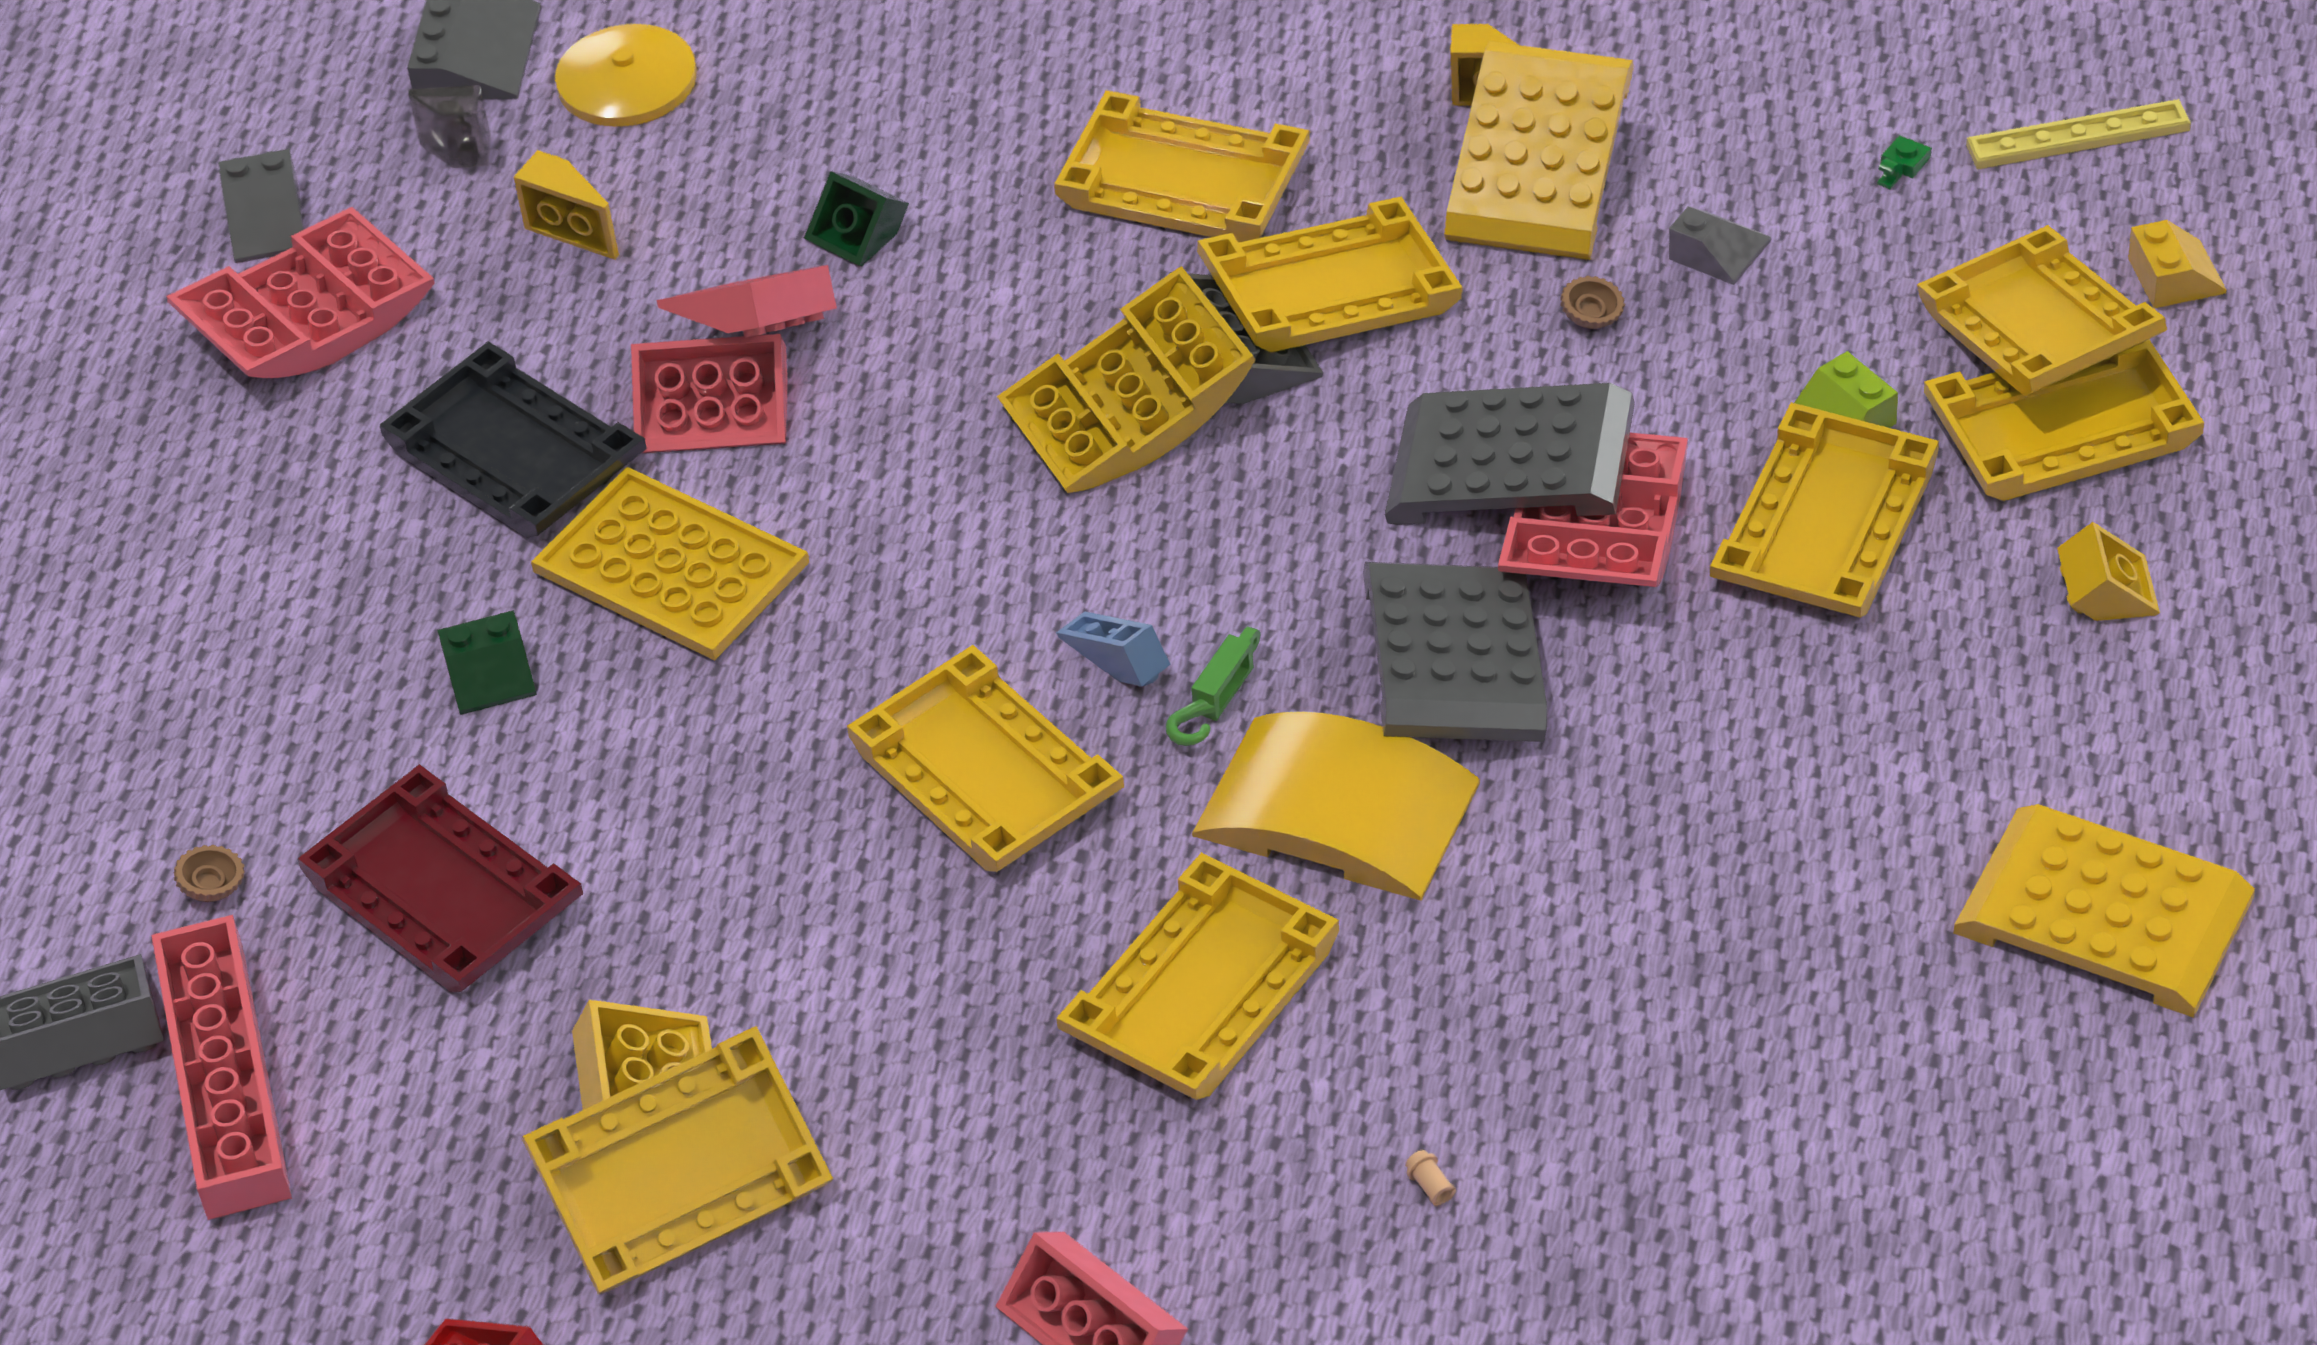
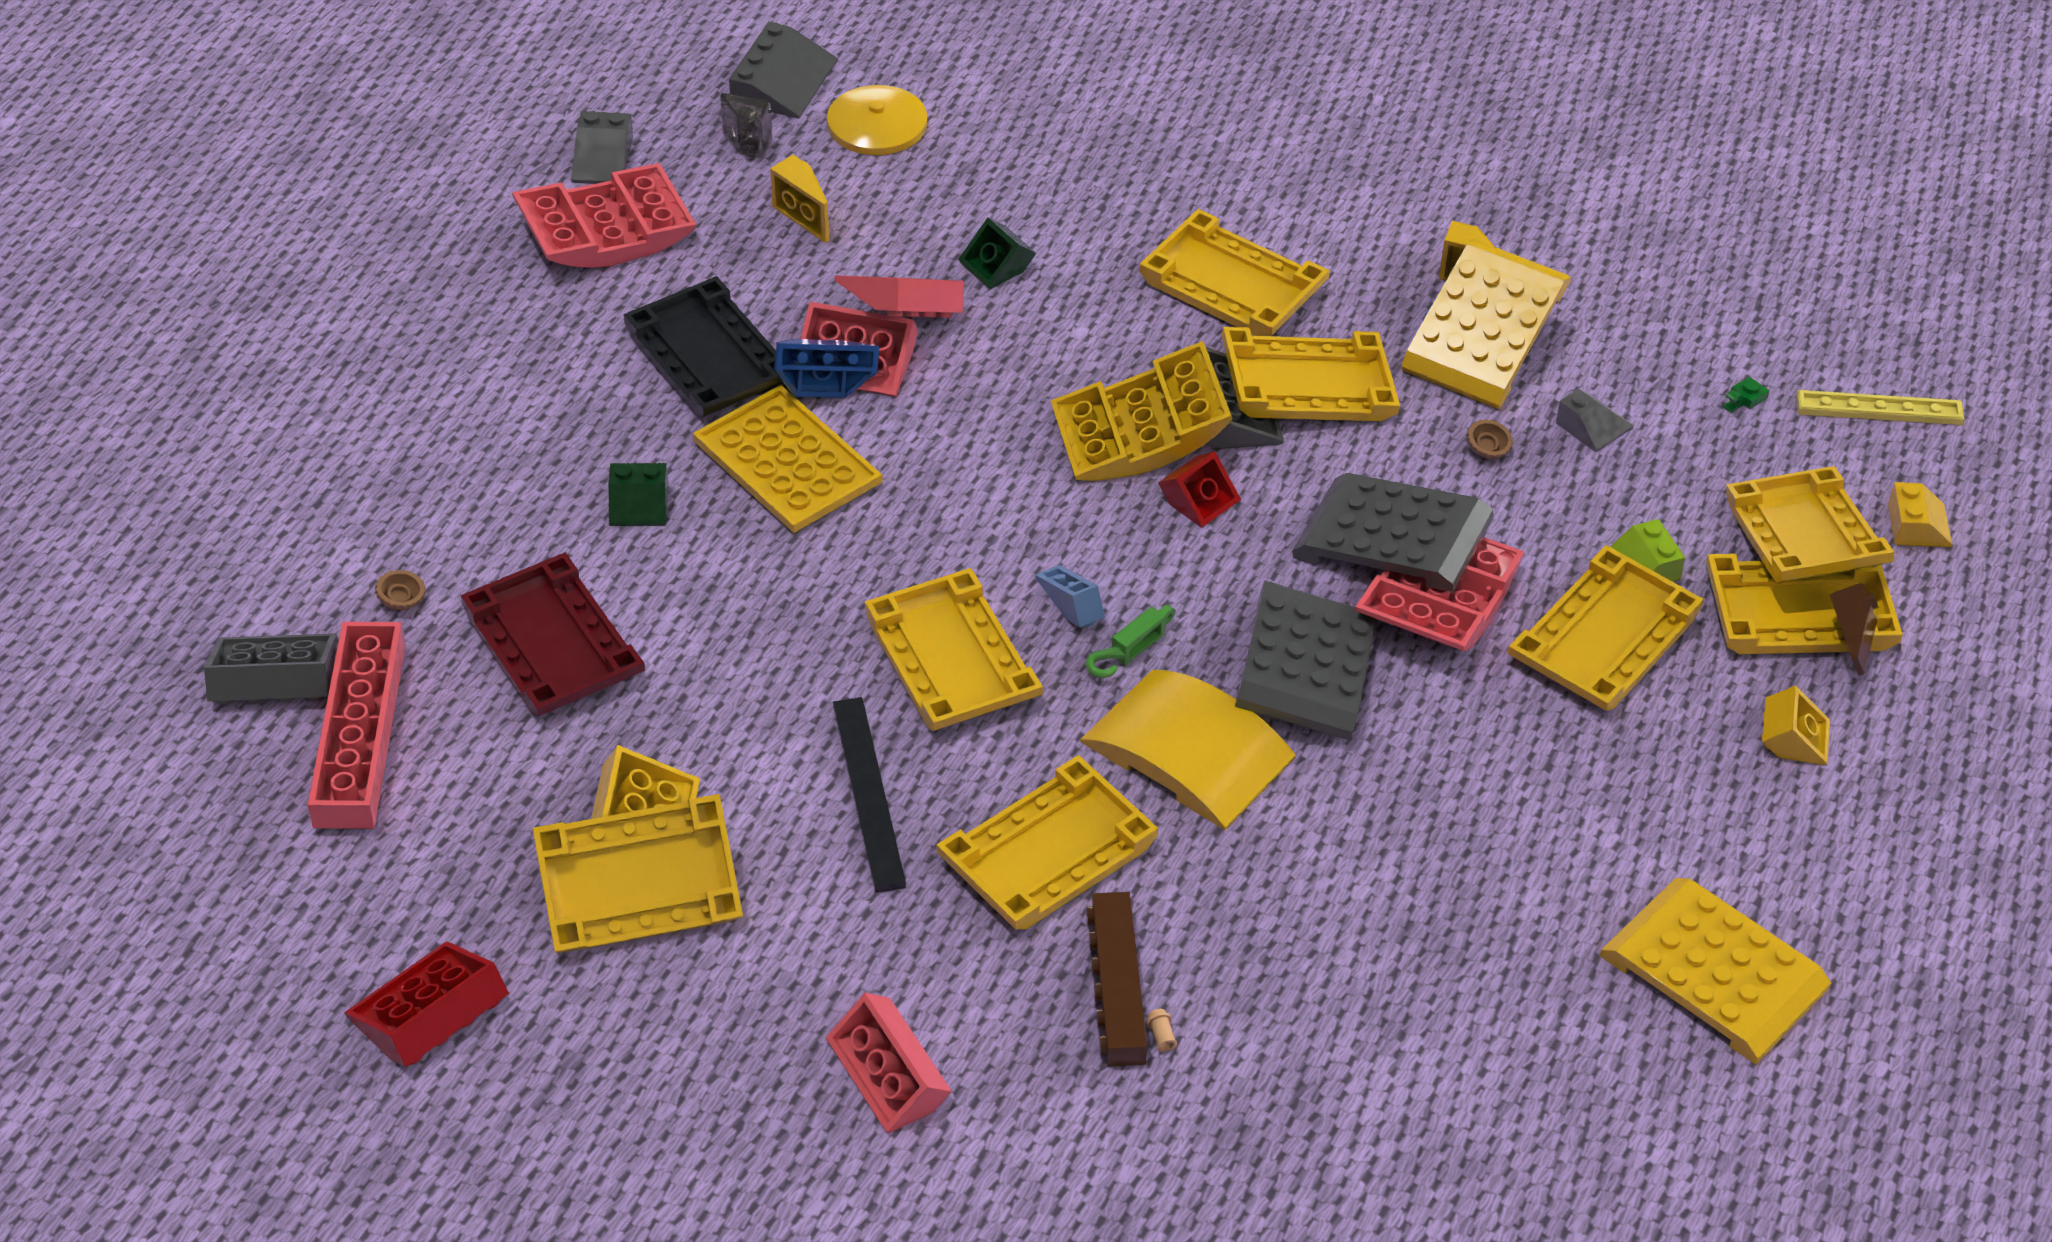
camera: 10 degrees right, 0 degrees up
(682, 426) = (824, 366): none -> blue wedge
(939, 978) = (869, 795): none -> black tile
(1237, 463) = (1200, 489): none -> red slope
(1351, 1128) = (1118, 979): none -> reddish brown brick
(2142, 418) = (1857, 620): none -> reddish brown slope

